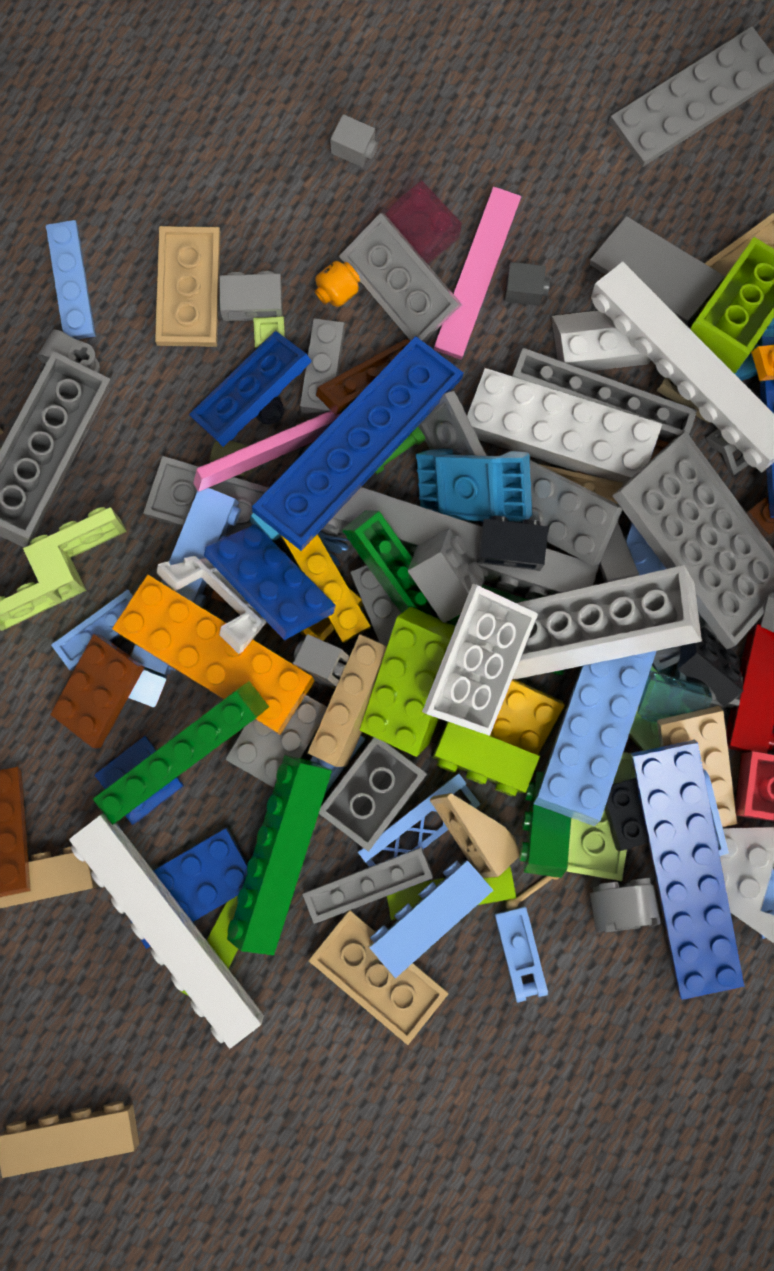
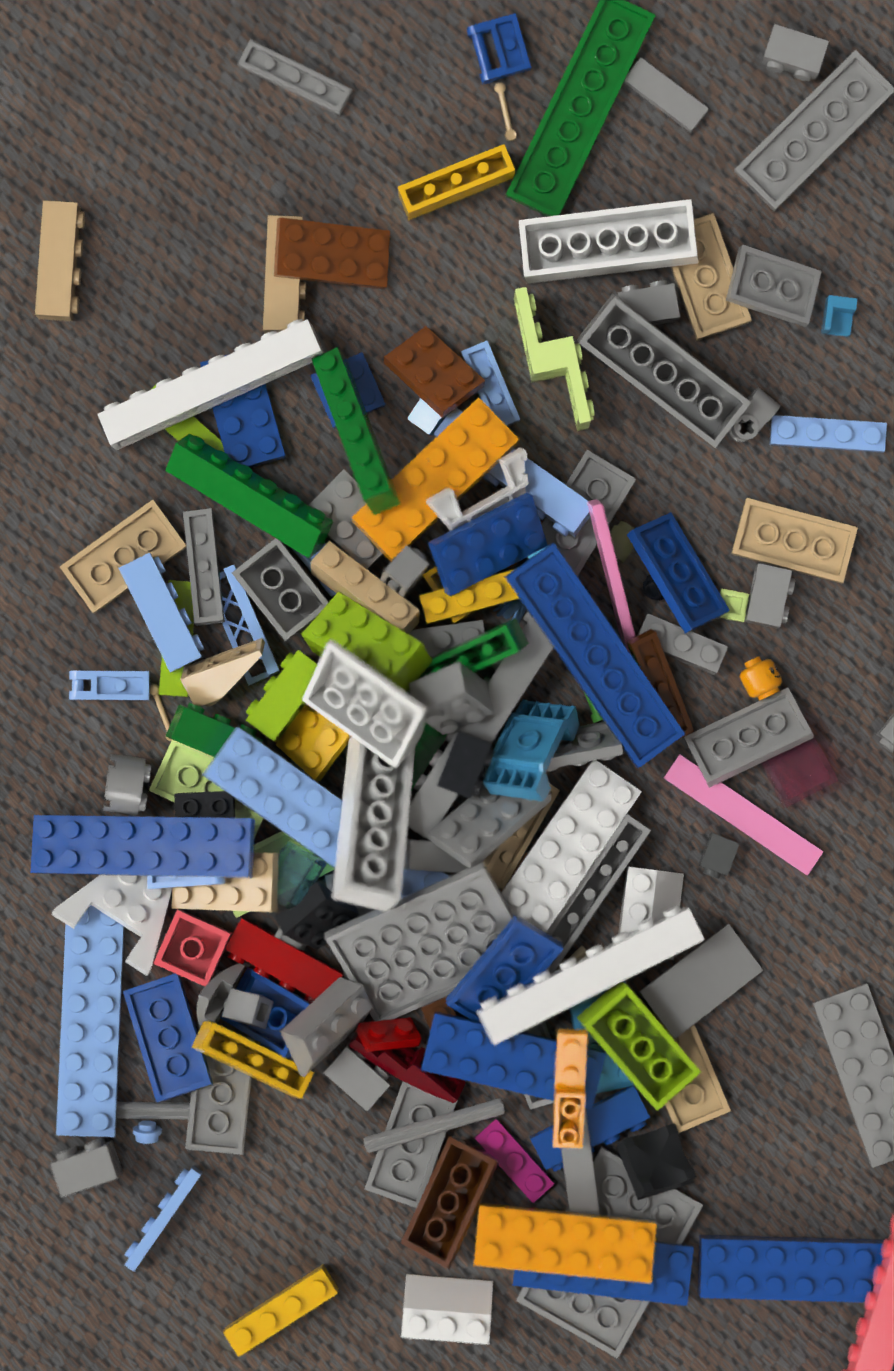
camera: 110 degrees right, 5 degrees up
(703, 452) = (511, 959): none -> blue plate

